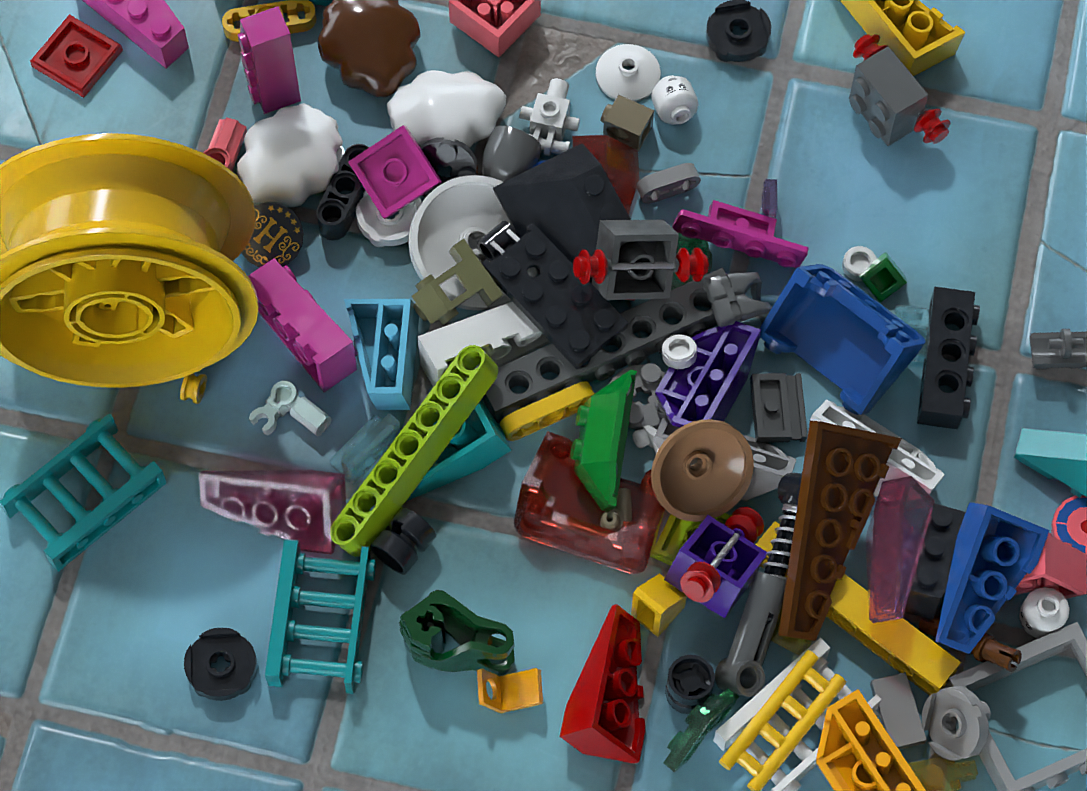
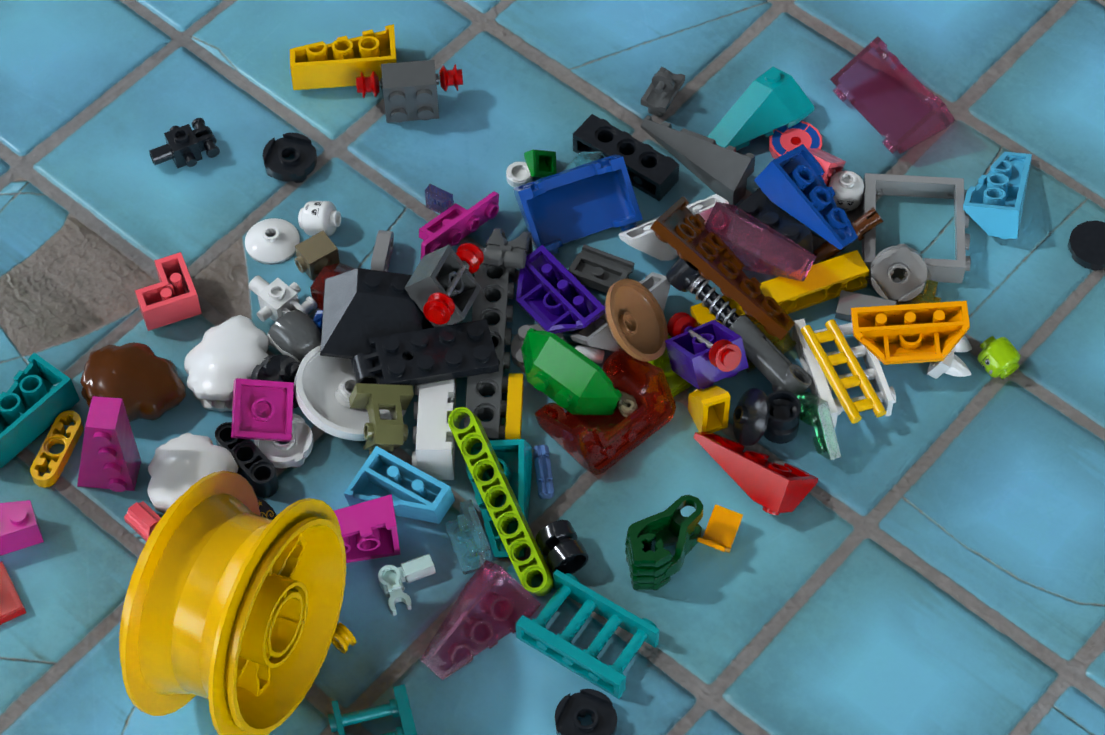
camera: 60 degrees left, 10 degrees down
(492, 478) = (543, 471): none -> medium blue axle
(667, 651) = (751, 417): none -> black dish
(679, 351) = (525, 303): white tile -> none
(992, 453) = (714, 165): none -> dark grey wedge

